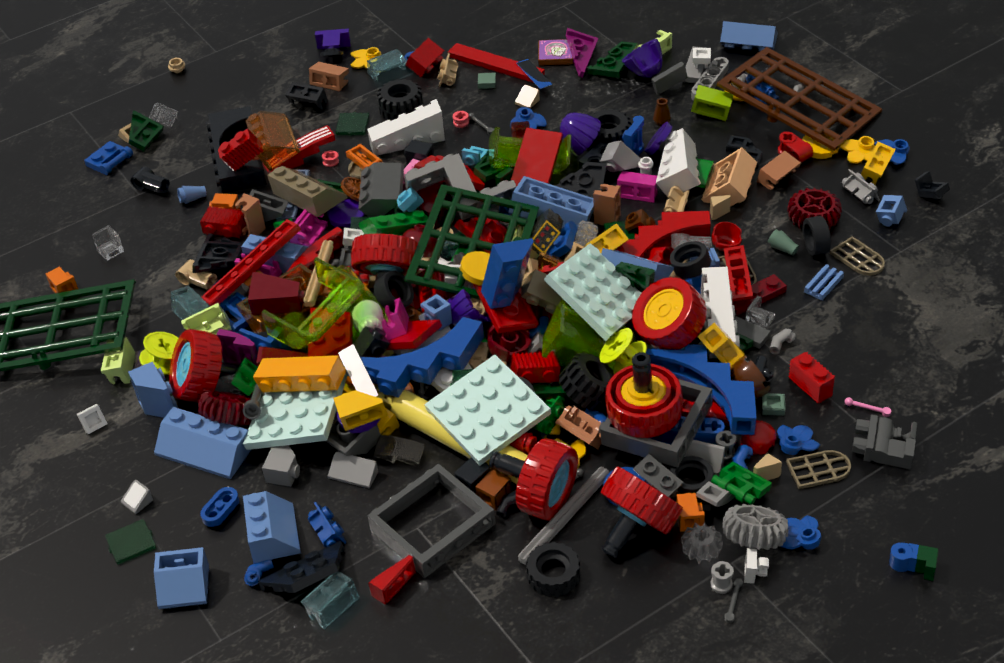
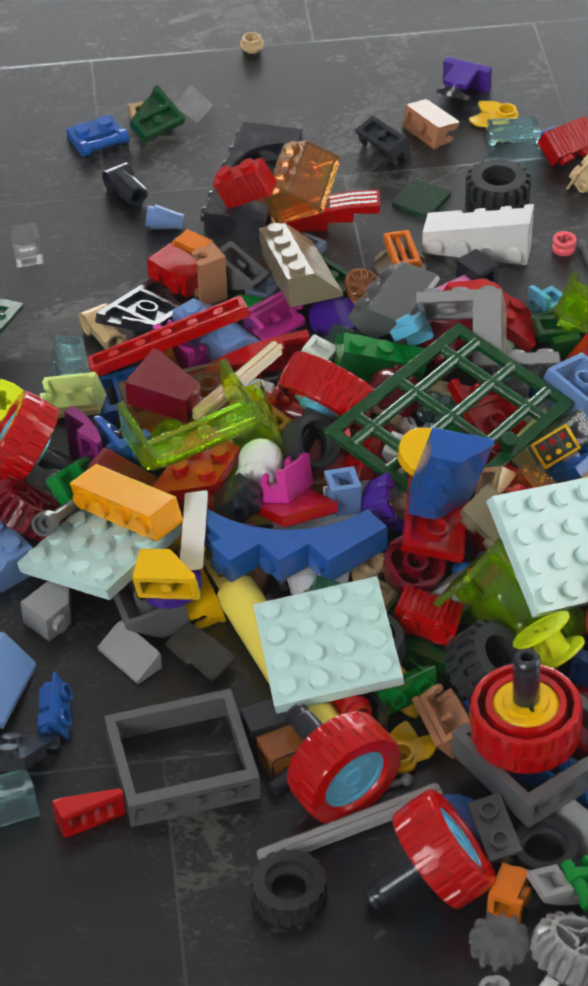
camera: 25 degrees right, 0 degrees up
(330, 158) = (362, 235): coral bush -> none

